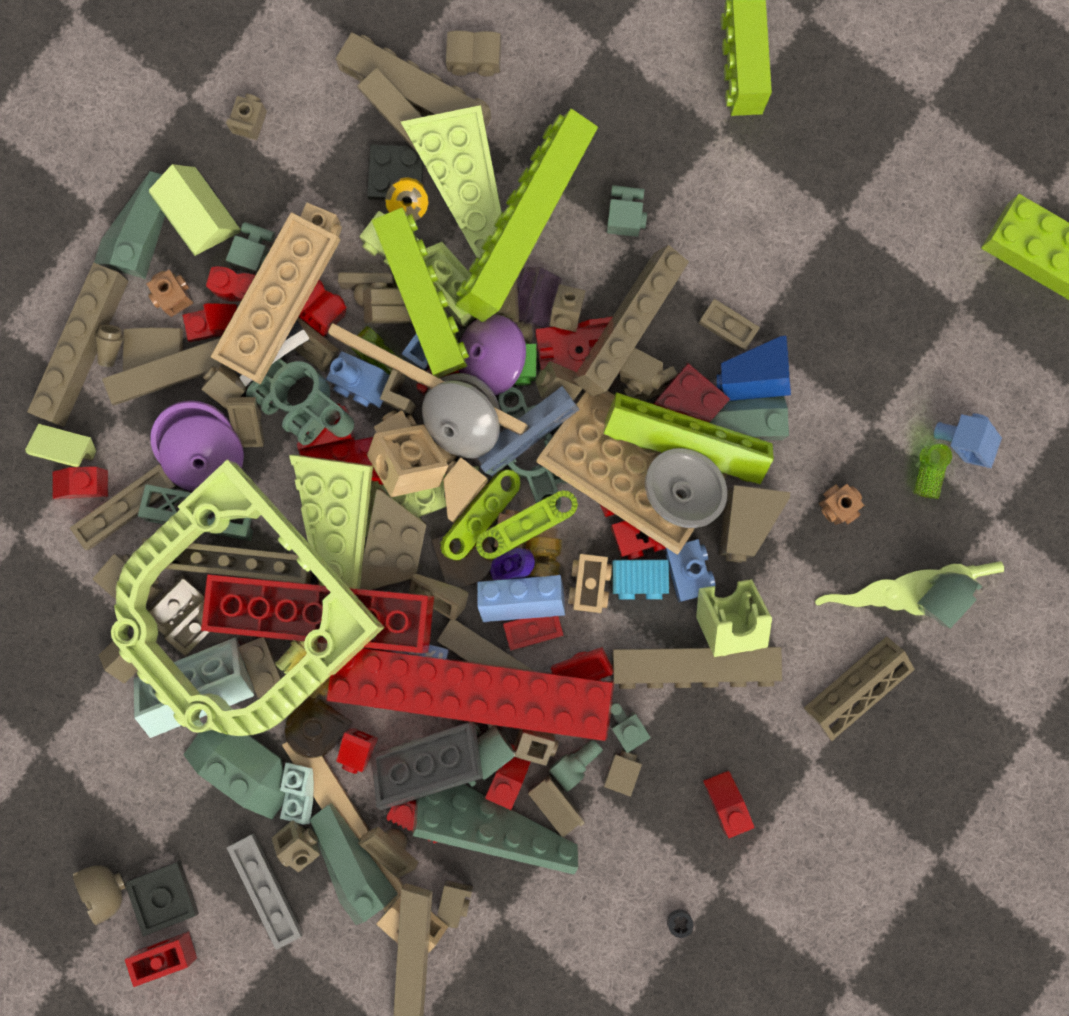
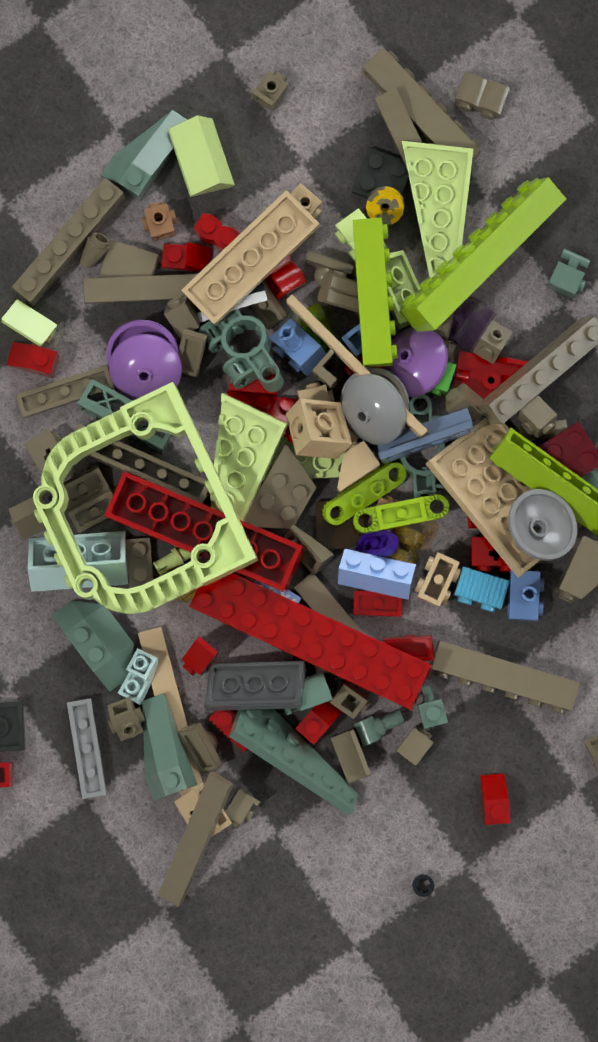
camera: 10 degrees right, 0 degrees up
(250, 253) = (237, 210): sand green brick -> none
(315, 728) = (169, 627): dark brown tile -> none
(734, 622) = (548, 649): yellowish green piece -> none

